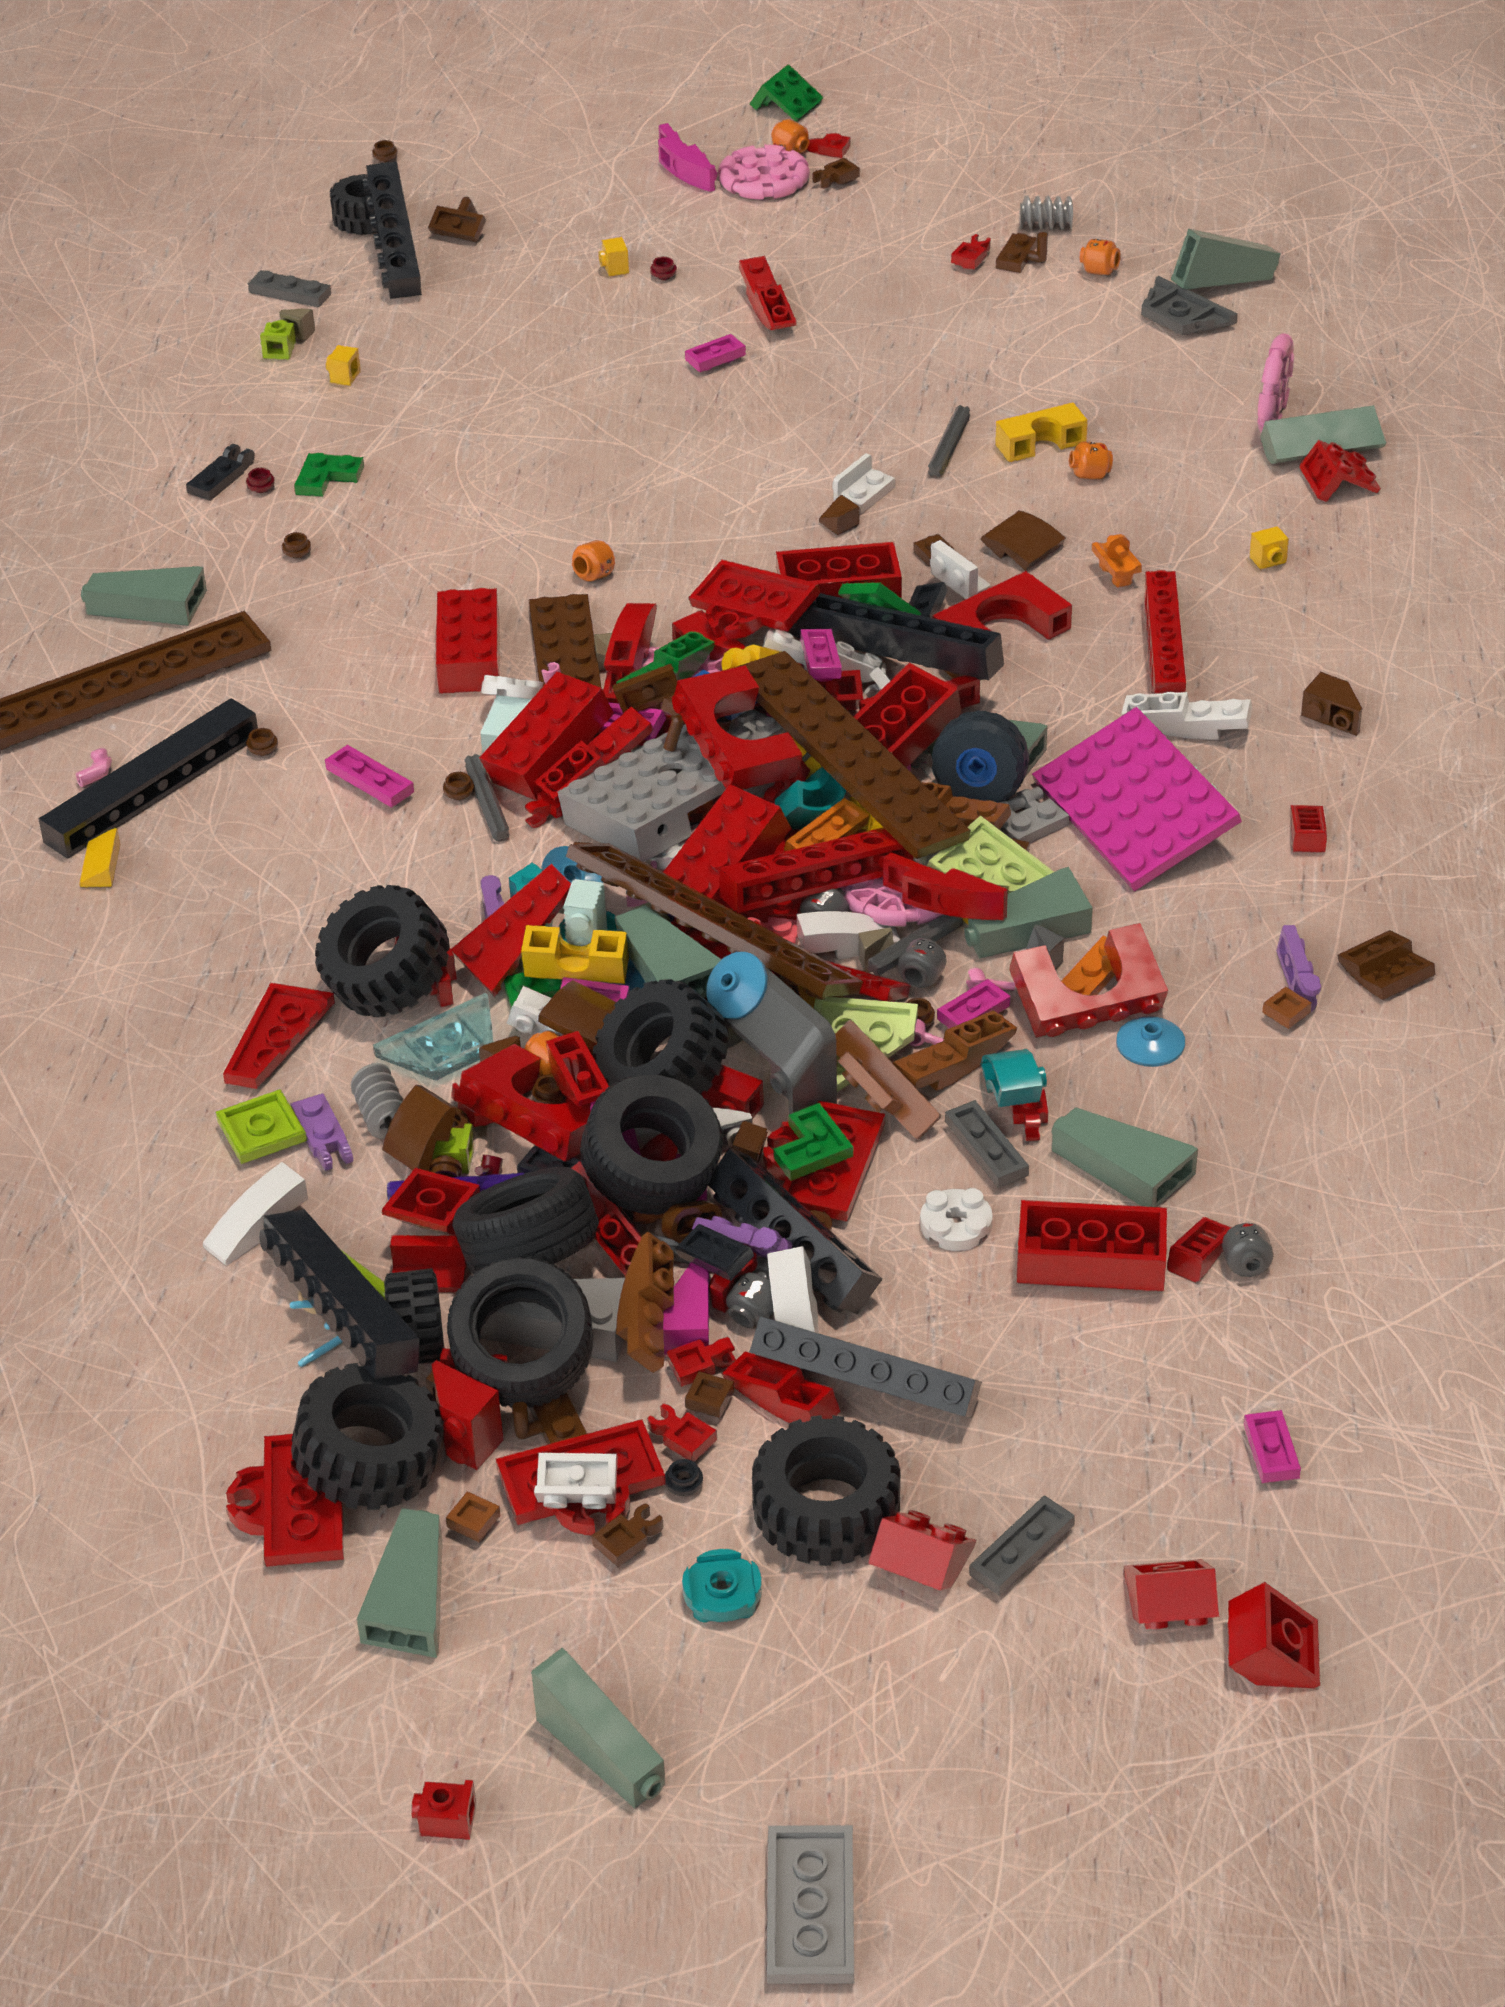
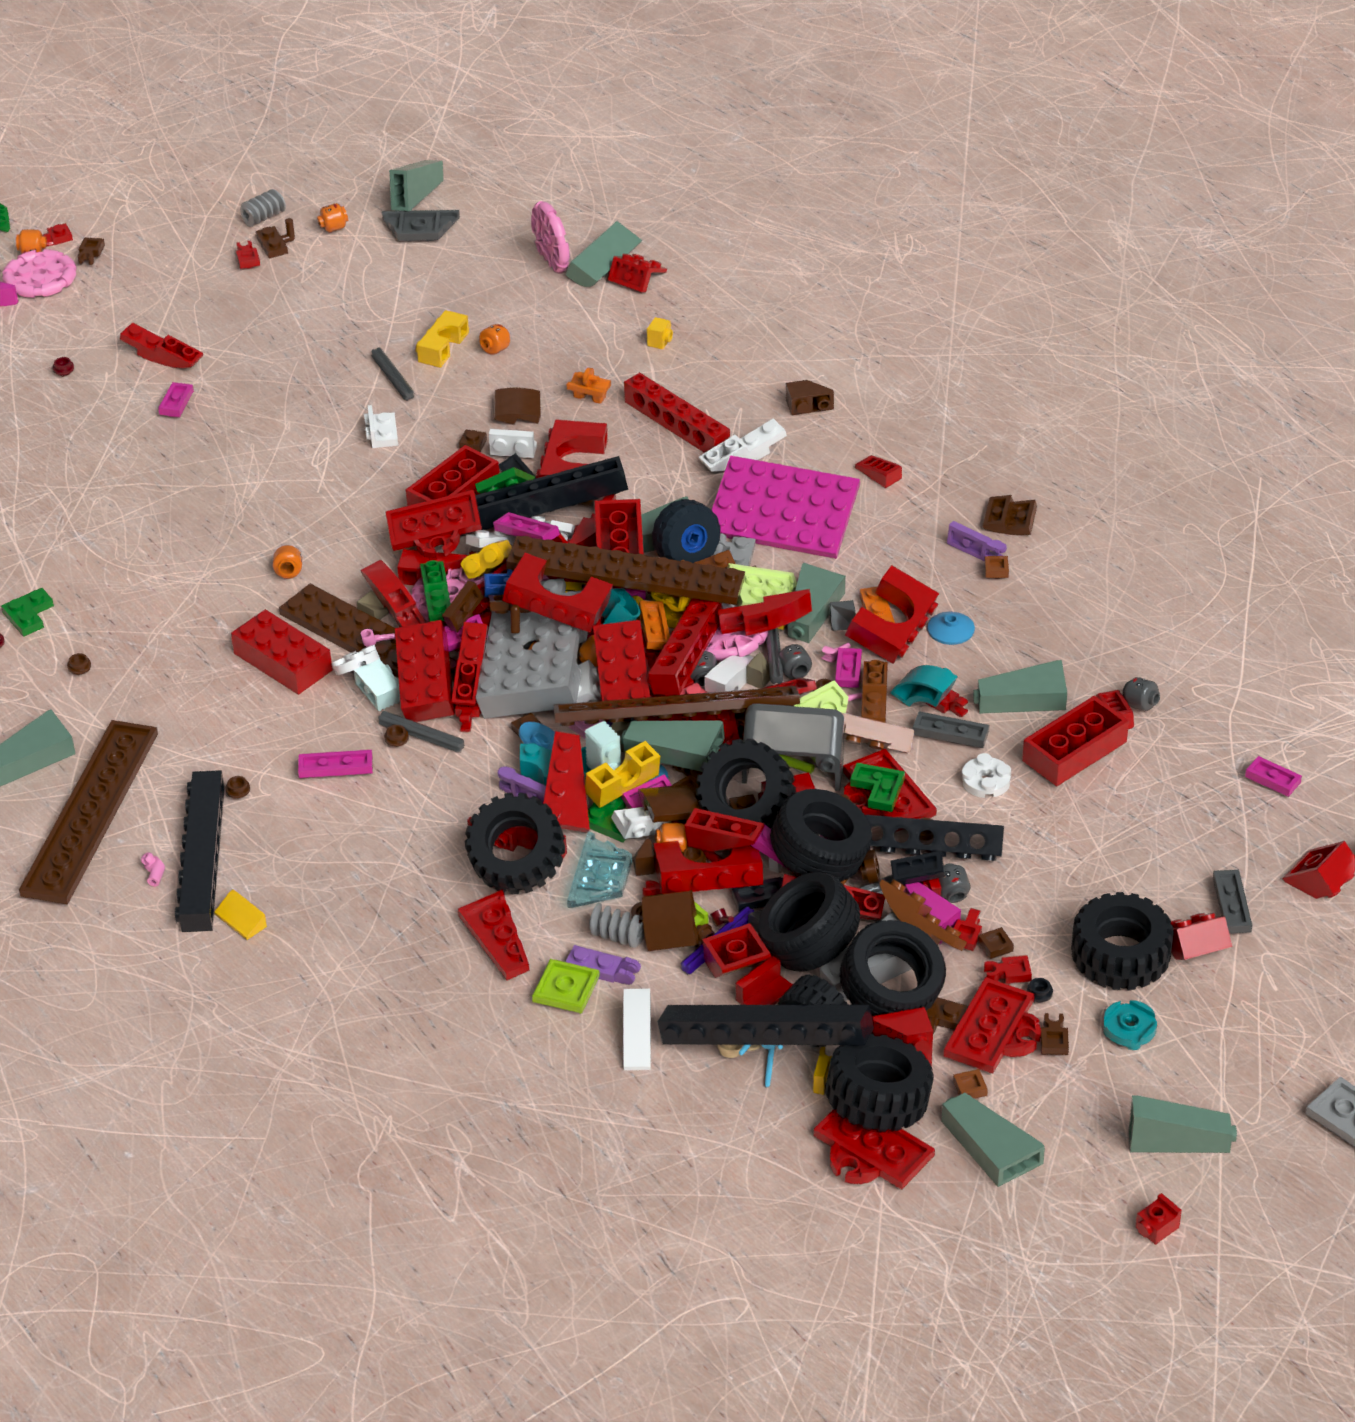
camera: 45 degrees left, 0 degrees up
(576, 1479) = (1006, 1023): white bracket -> none
(614, 256) = (23, 375): yellow plate -> none
(746, 989) = (756, 710): dark azure dish -> none
(760, 1240) = (931, 845): medium lavender hinge -> none
(781, 1388) = (1027, 914): red slope -> none
(793, 1289) = (983, 870): white slope -> none
(841, 515) = (393, 451): reddish brown slope -> none
(865, 1367) = (1057, 872): black brick -> none

